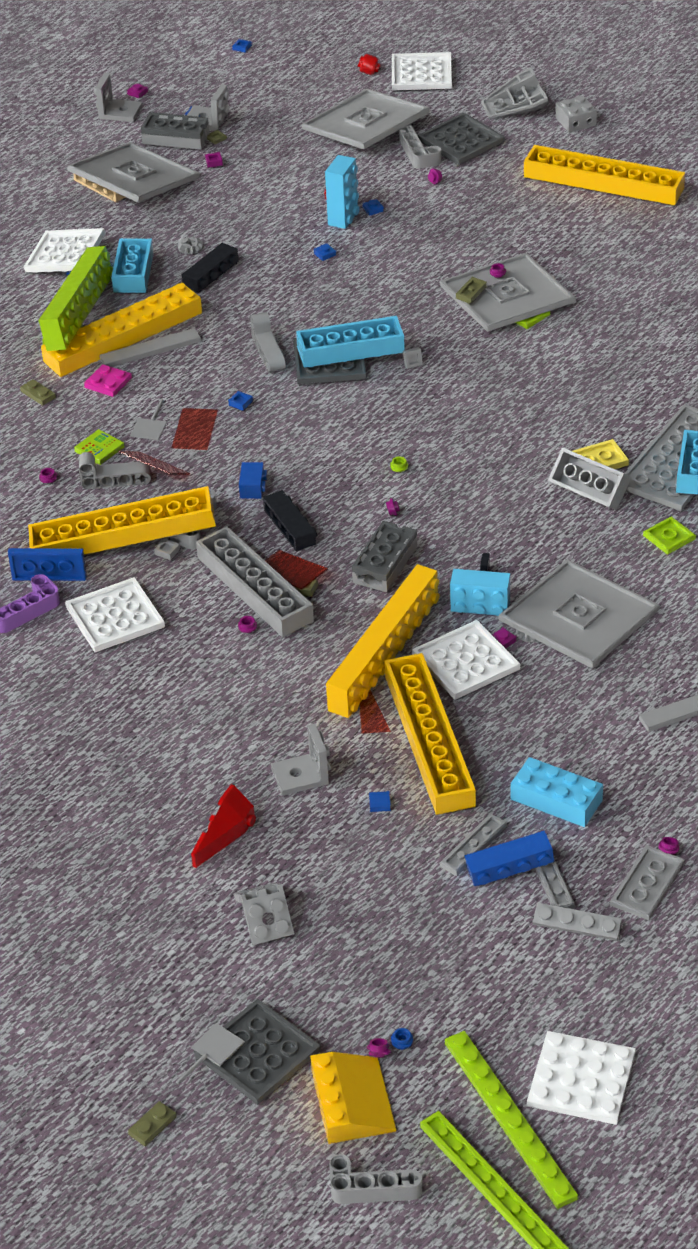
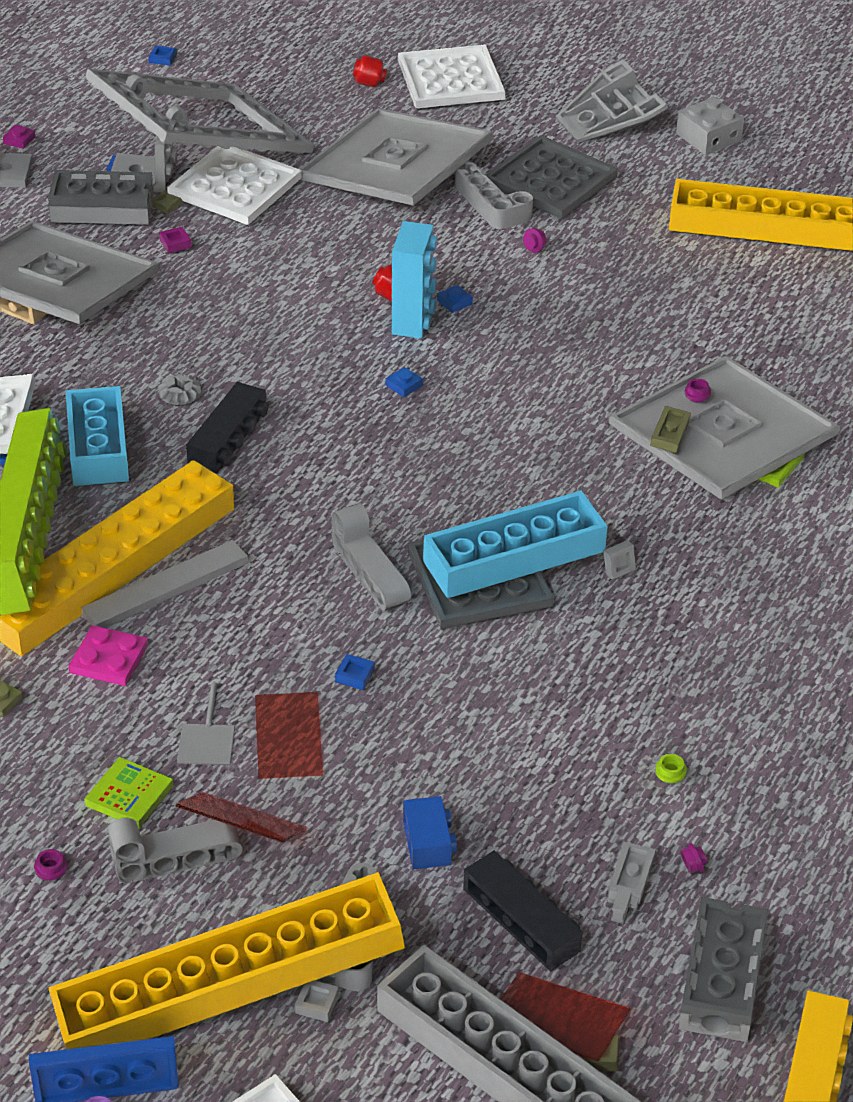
camera: 15 degrees left, 0 degrees up
(197, 65) = (130, 88): none -> light grey plate
(261, 128) = (235, 183): none -> white plate
(353, 513) = (629, 879): none -> light grey hinge

